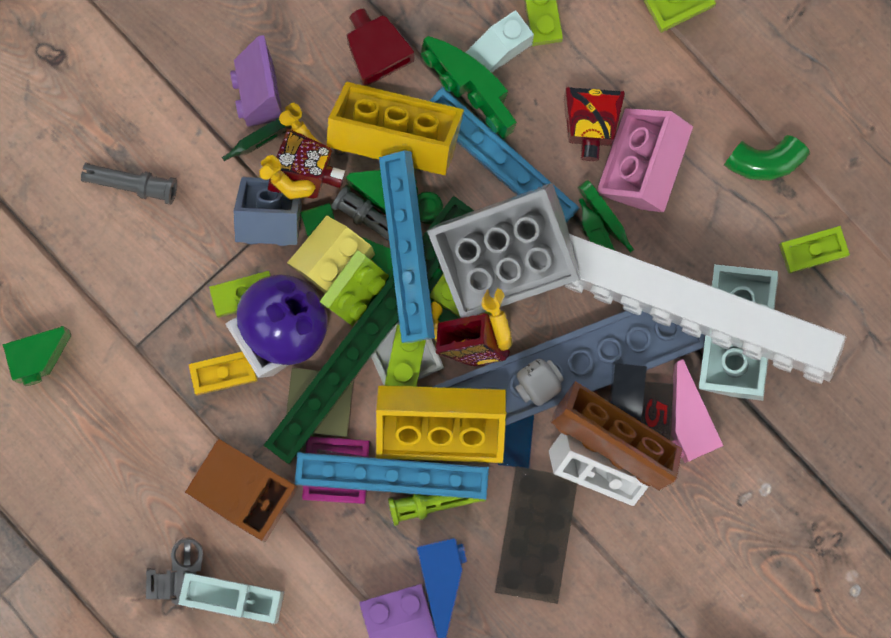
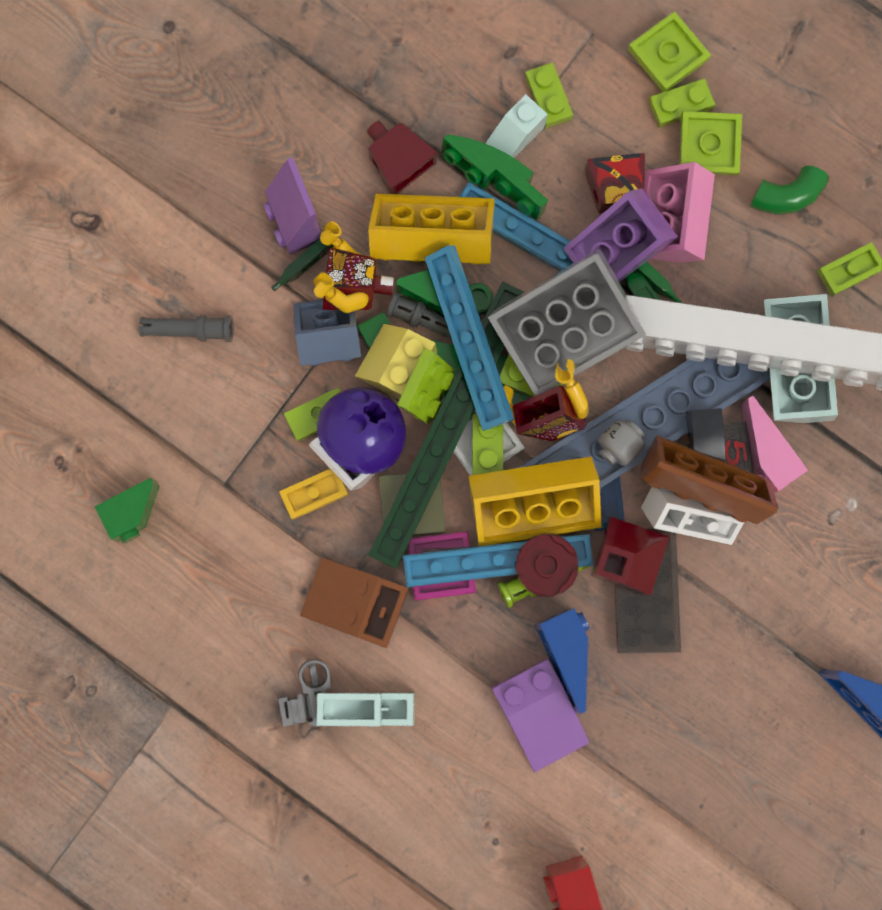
camera: 15 degrees left, 0 degrees up
(438, 490) = (547, 565): none -> dark red tile
(525, 497) = (630, 556): none -> dark red slope
(585, 173) = (625, 233): none -> medium lavender slope
(677, 45) = (691, 98): none -> lime plate
(697, 92) = (711, 141): none -> lime plate

